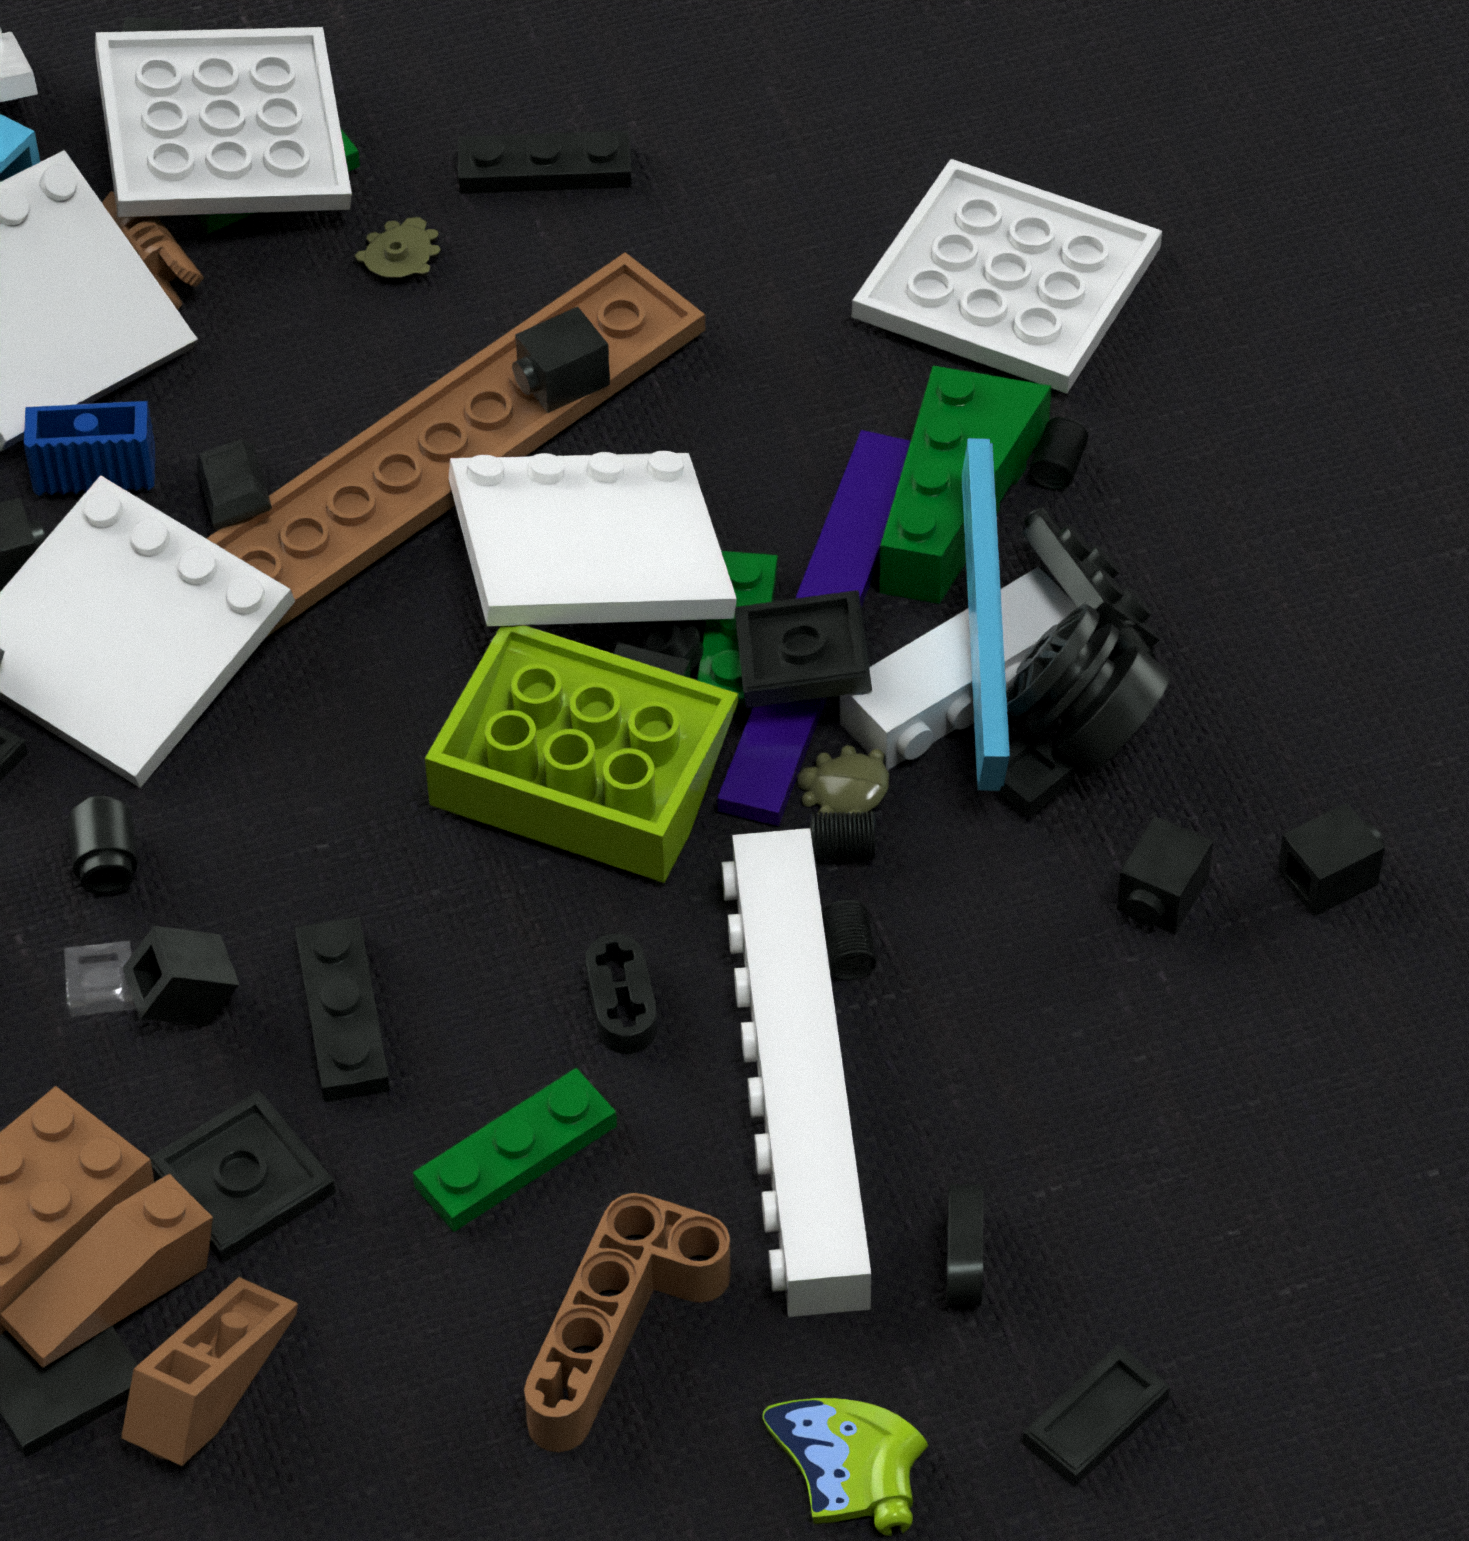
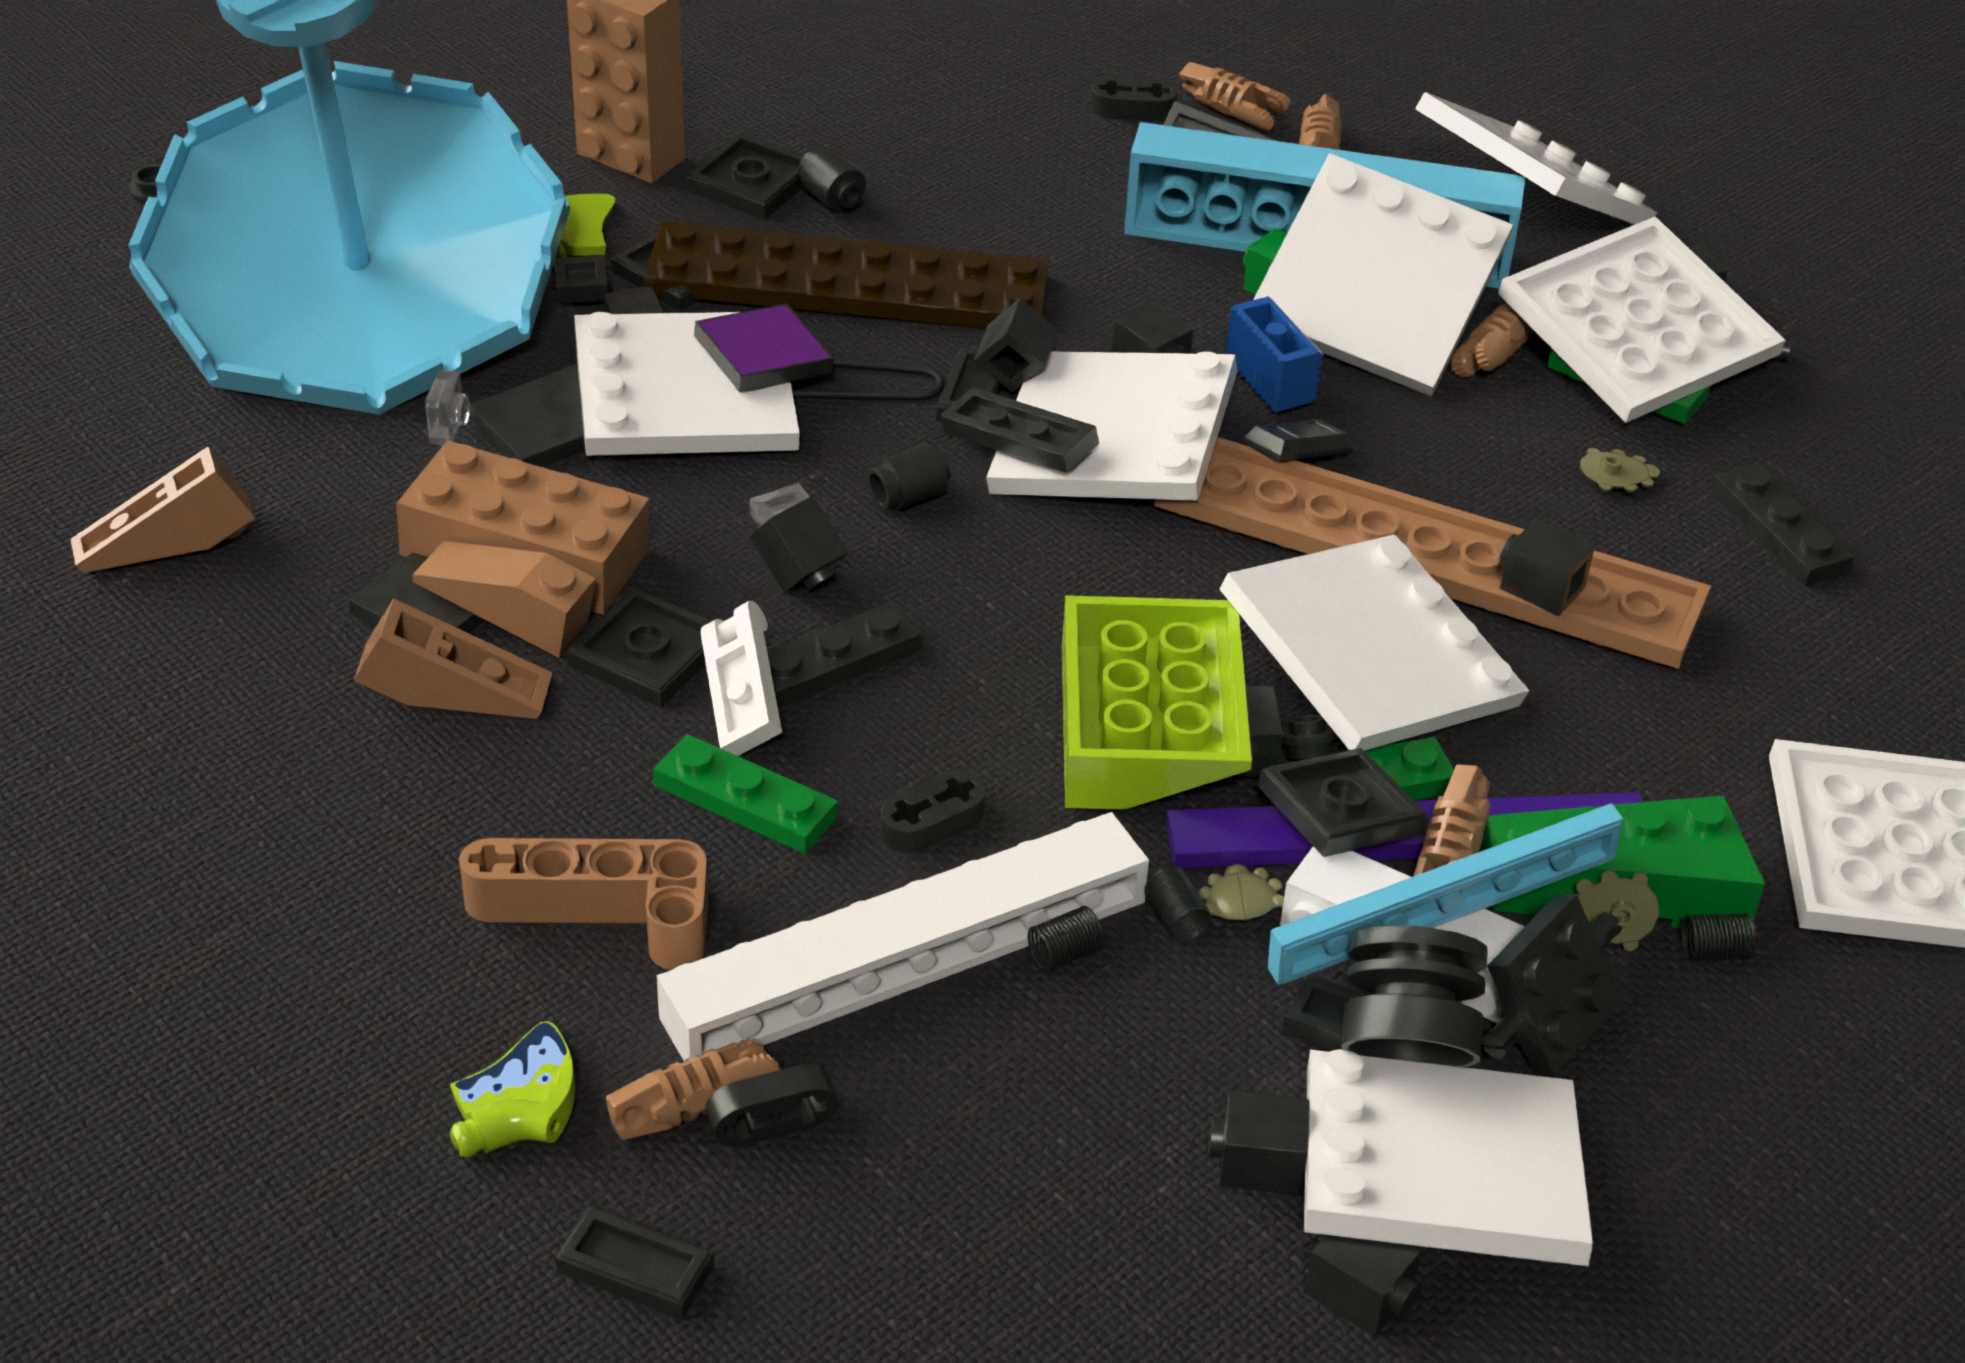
camera: 65 degrees right, 10 degrees down
(100, 713) = (1020, 429): none -> pearl dark grey plate
(365, 1094) = (741, 679): none -> white plate
(880, 587) = (1456, 820): none -> medium nougat hinge
(916, 1304) = (682, 1090): none -> medium nougat hinge
(1012, 506) = (1627, 900): none -> olive piece
(1245, 749) = (1445, 1158): none -> white plate

